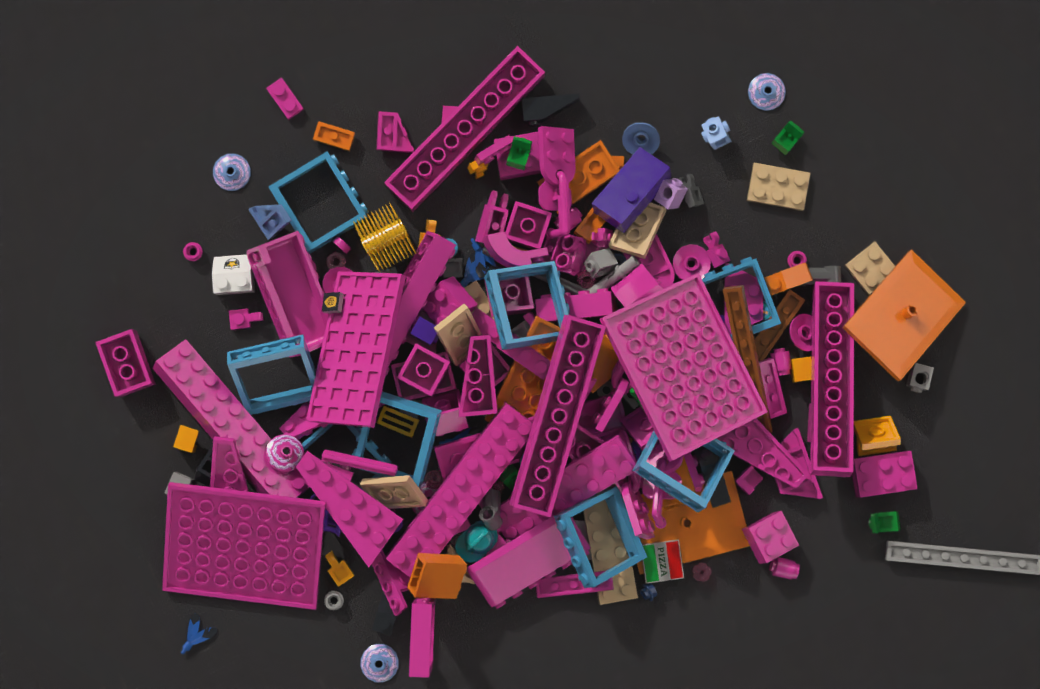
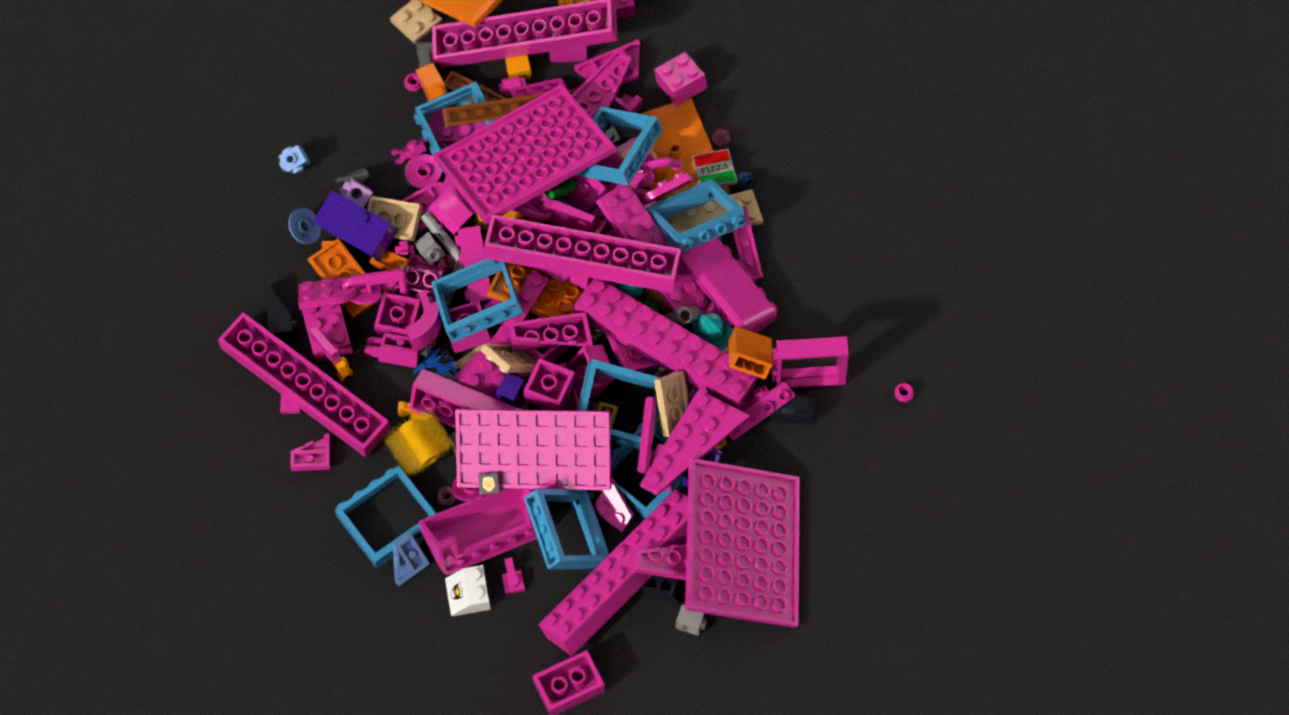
camera: 90 degrees left, 20 degrees down
(186, 439) = (640, 617): light orange panel -> none
(192, 245) = (447, 630): dark pink plate -> none
(195, 637) = (840, 593): blue piece -> none
(233, 181) = (364, 616): dish -> none
(281, 461) = (646, 519): dish -> none
(285, 98) = (281, 563): dark pink plate -> none
(329, 604) = (788, 457): light grey plate -> none
(334, 136) = (318, 510): orange plate -> none
(340, 570) = (758, 458): light orange plate -> none
(341, 244) = (429, 490): dark pink tile -> none
(386, 655) = (842, 423): dish -> none
(519, 153) = (328, 323): green bracket -> none
(763, 100) = (253, 130): dish -> none
(778, 186) = (343, 105): tan plate -> none
(784, 568) = (709, 65): dark pink brick -> none
(787, 137) = (294, 99): green bracket -> none
(799, 325) = (482, 69): dark pink dish -> none

